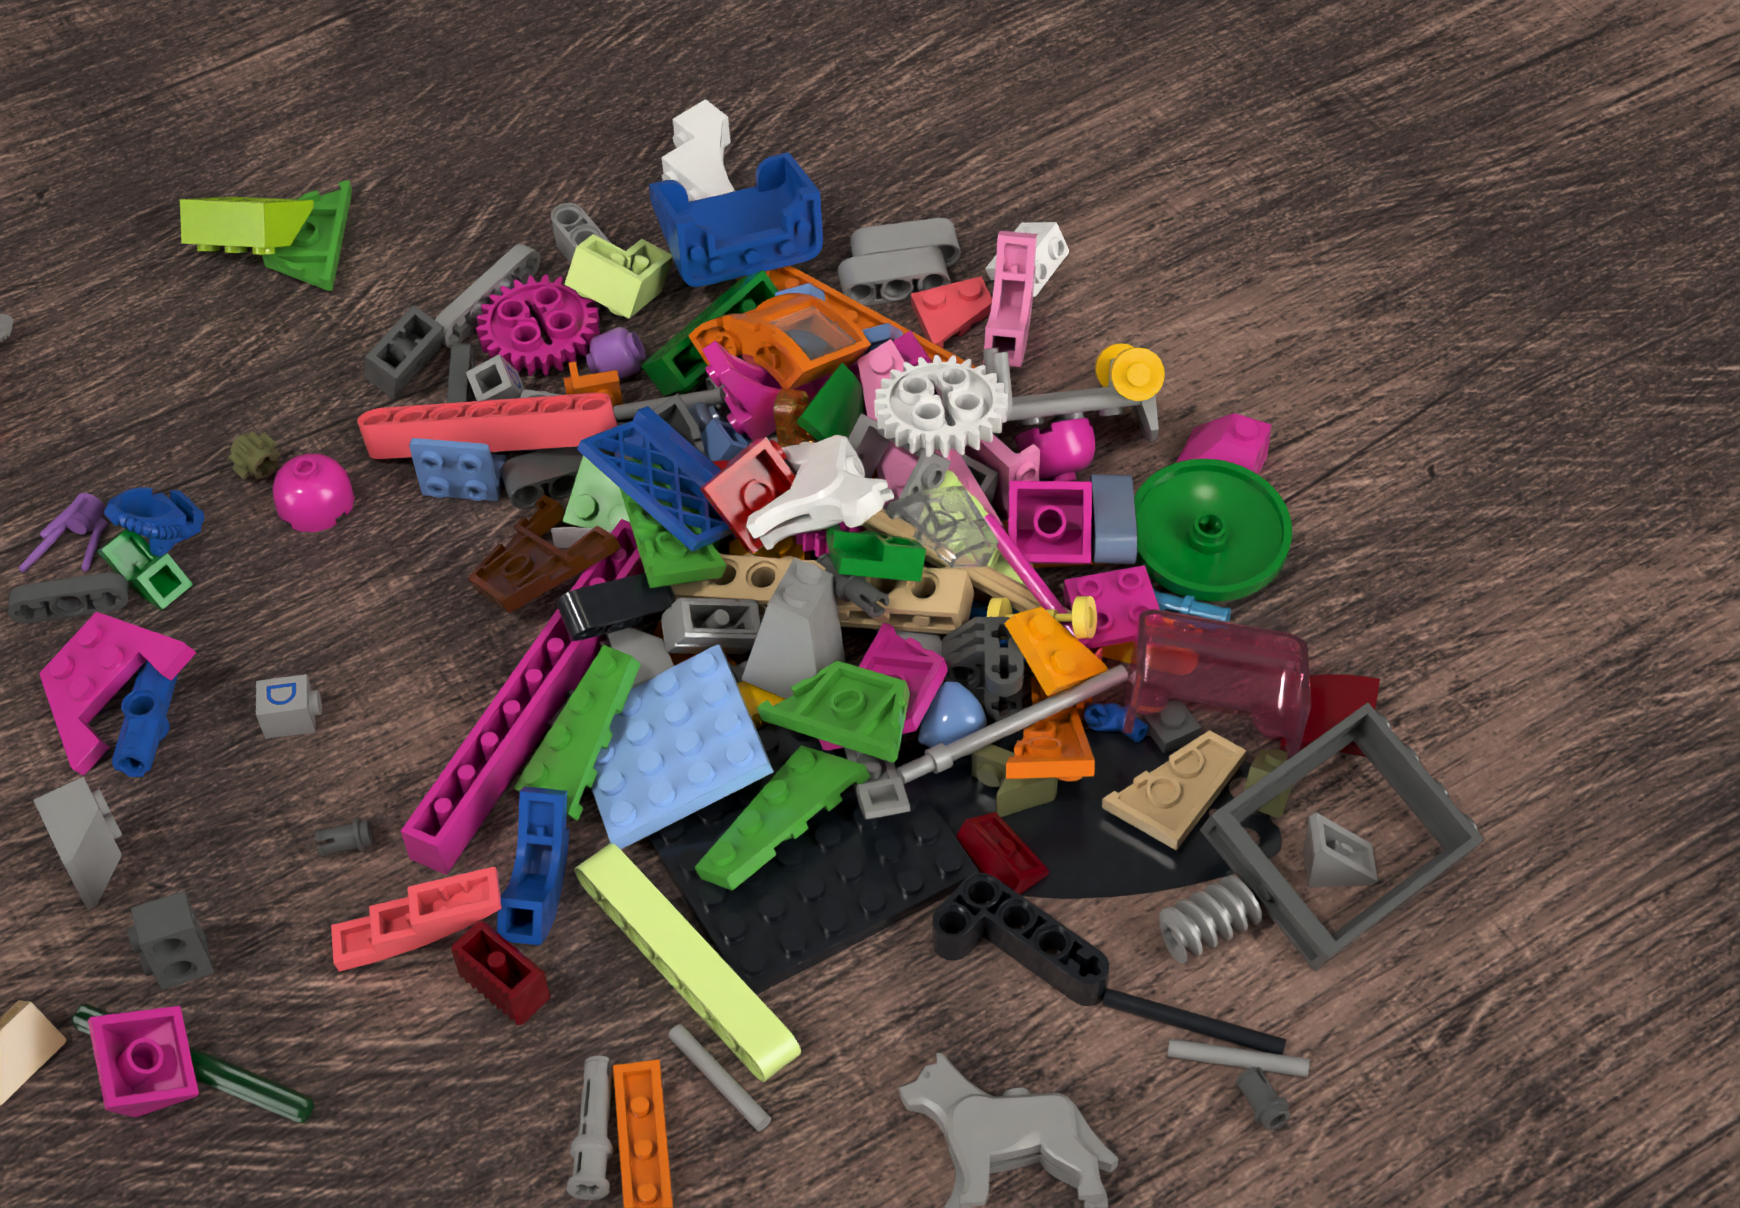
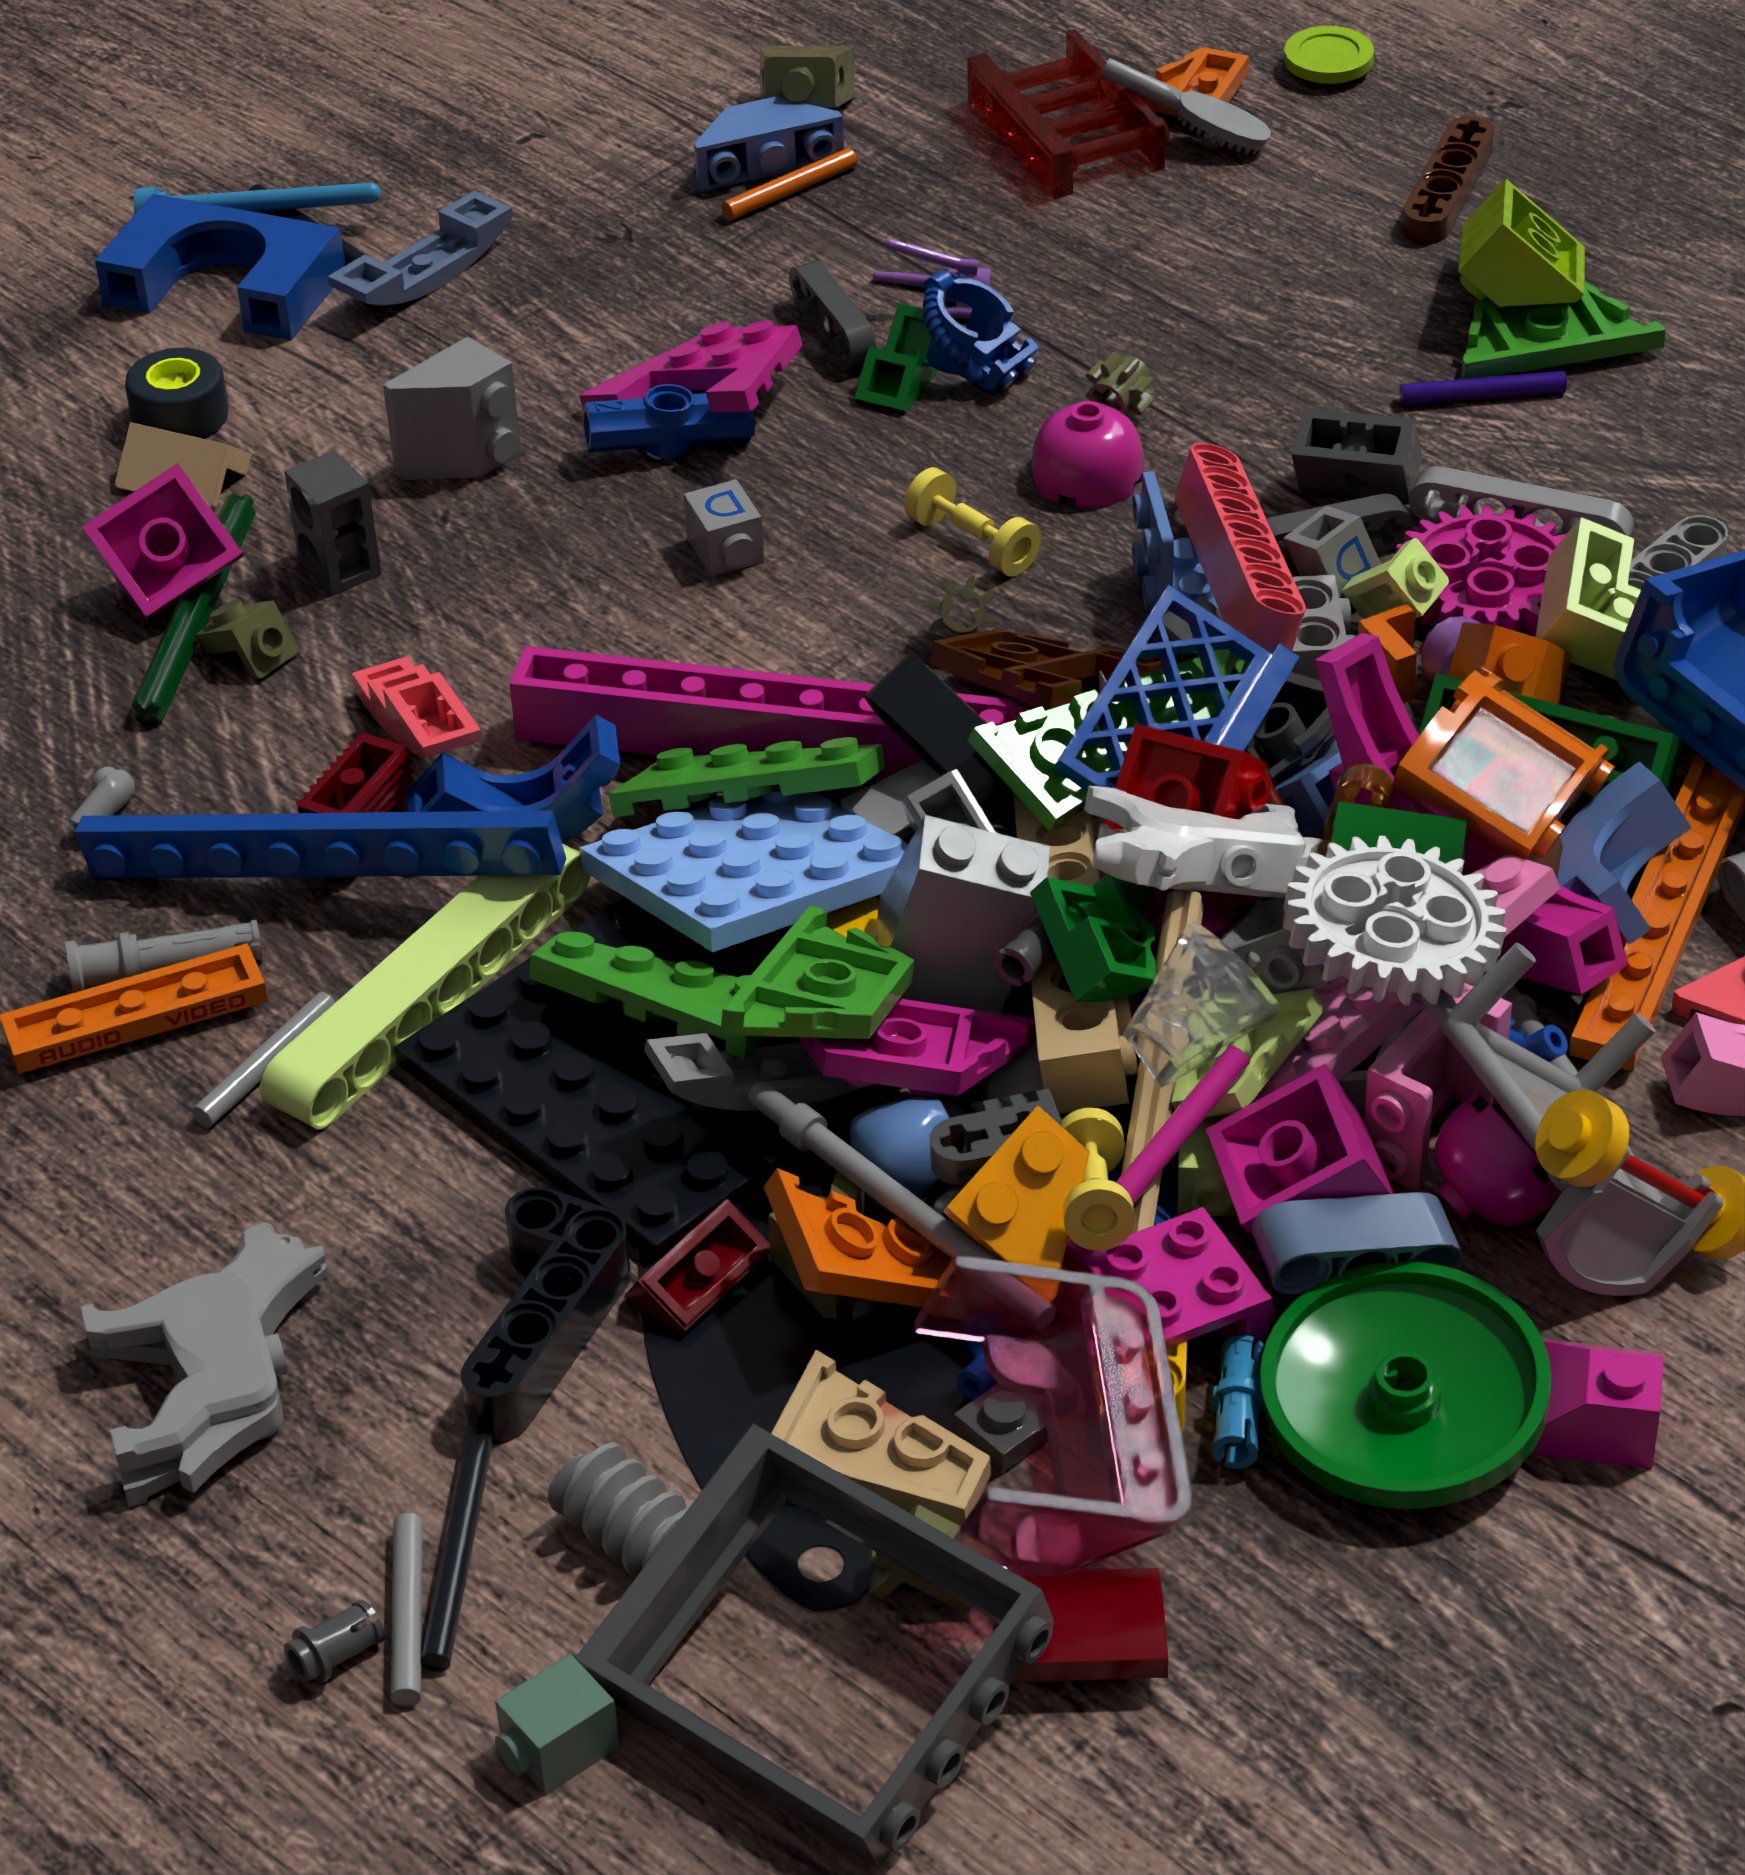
camera: 75 degrees right, 10 degrees down
(108, 245) = (1450, 170): none -> reddish brown beam
(250, 1027) = (254, 632): none -> olive bracket
(344, 284) = (1482, 388): none -> dark purple bar
(347, 837) = (541, 629): dark grey pin -> none
(352, 566) = (1012, 545): none -> light yellow wheel
(402, 1145) = (110, 793): none -> light grey arm
(449, 589) = (966, 595): none -> olive gear
(540, 1012) = (322, 844): none -> blue plate
(550, 366) = (1407, 578): none -> yellowish green bracket
(655, 329) = (1523, 661): none -> orange slope
(1336, 855) = (797, 1658): light grey slope -> none
(1357, 984) = (556, 1725): none -> sand green brick

